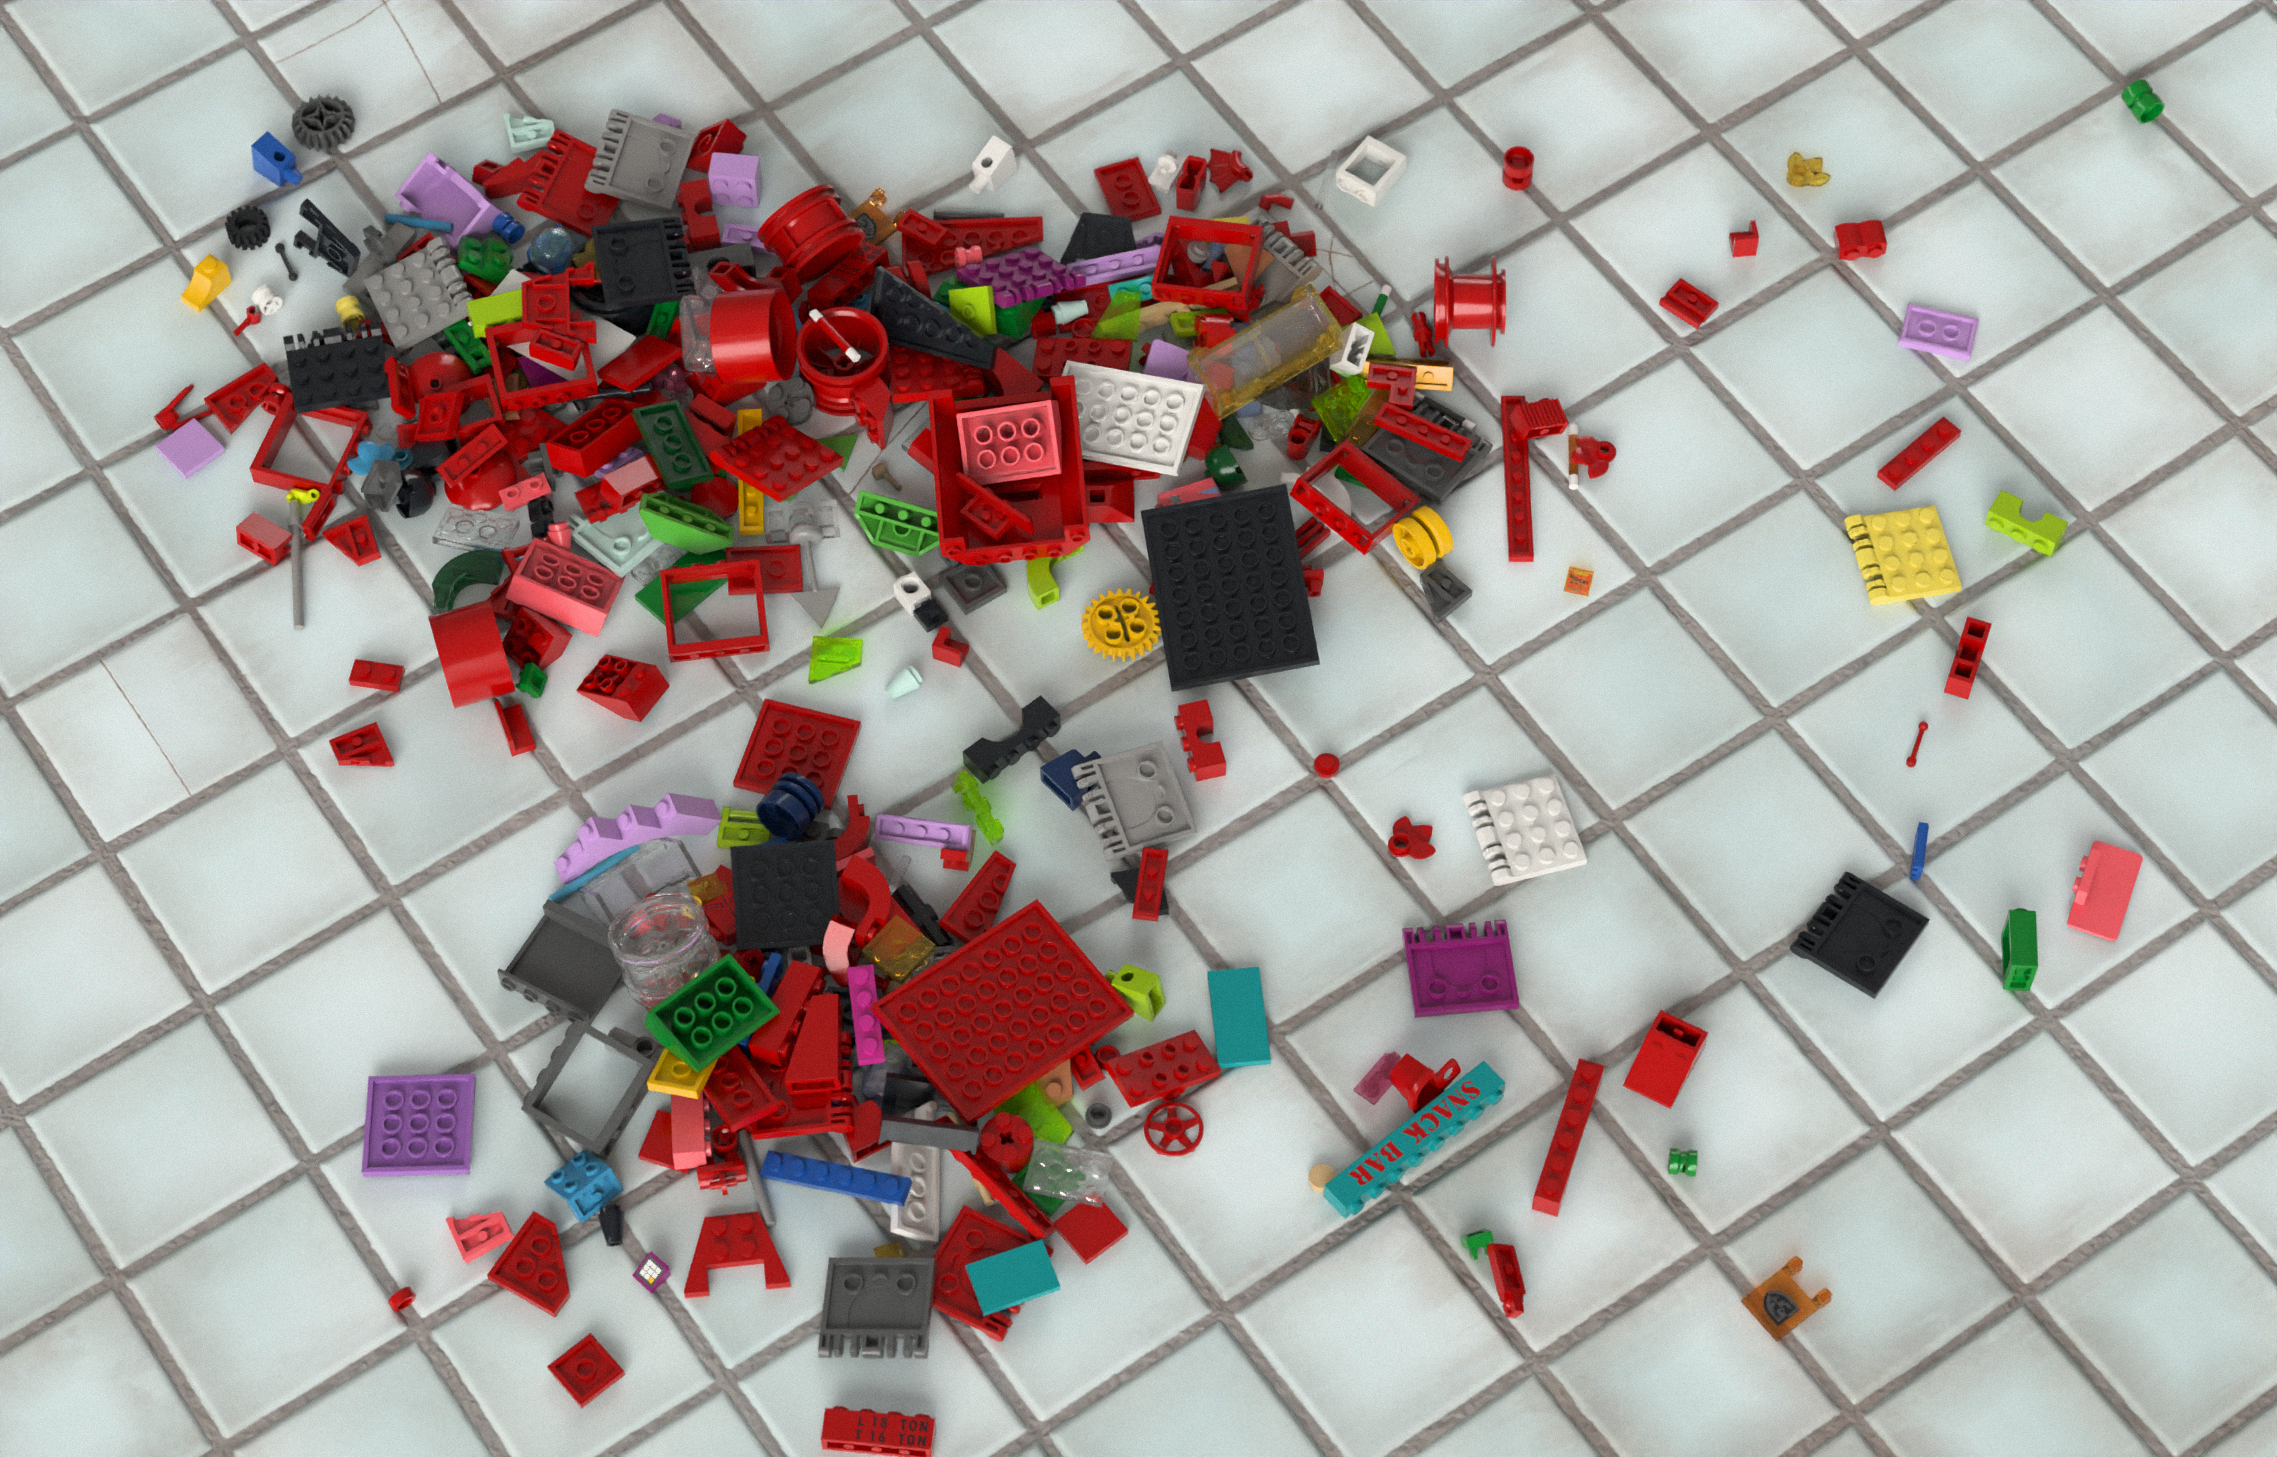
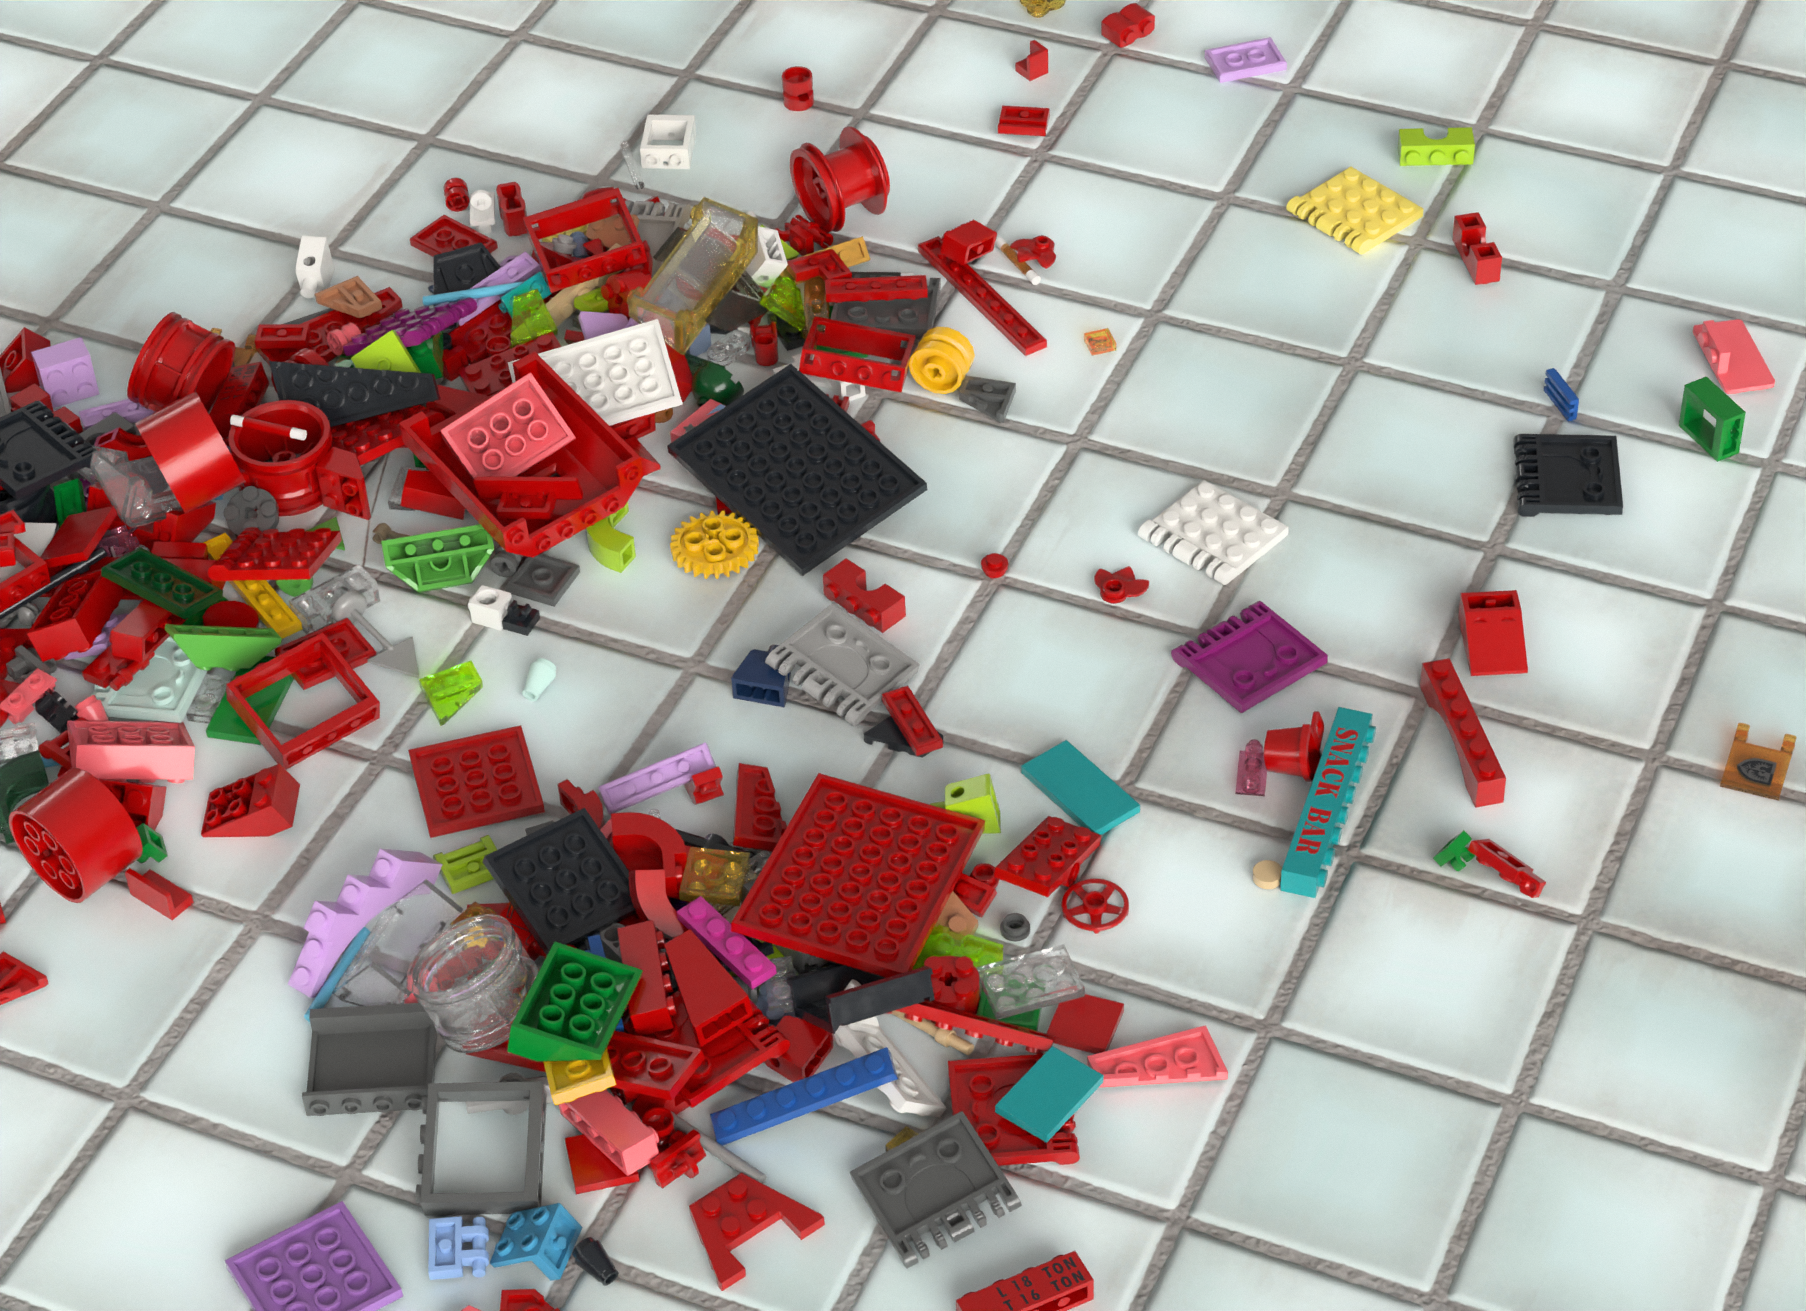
camera: 30 degrees left, 15 degrees down
(521, 1152) = (447, 1251): none -> light blue plate
(652, 1272) = (671, 1282): slope -> none
(790, 806) = (508, 811): dark blue wheel -> none
(947, 649) = (561, 637): red panel -> none
(974, 802) = (685, 732): clear neon green wing -> none
(988, 758) = (672, 697): black arch -> none
(999, 216) = (350, 298): none -> nougat wing
(1068, 311) = (473, 338): light aqua cone -> none
(1091, 265) = (472, 293): none -> medium azure bar
(1120, 1295) = (1166, 1059): none -> coral wing
(1161, 139) = (456, 194): none -> red wheel
(1227, 169) = (538, 191): red arm -> none
(1404, 340) = (798, 237): none -> red plate
(1676, 1160) = (1576, 703): green wheel -> none
(1911, 761) = (1493, 342): red hinge -> none
(1919, 453) = (1304, 141): red plate -> none

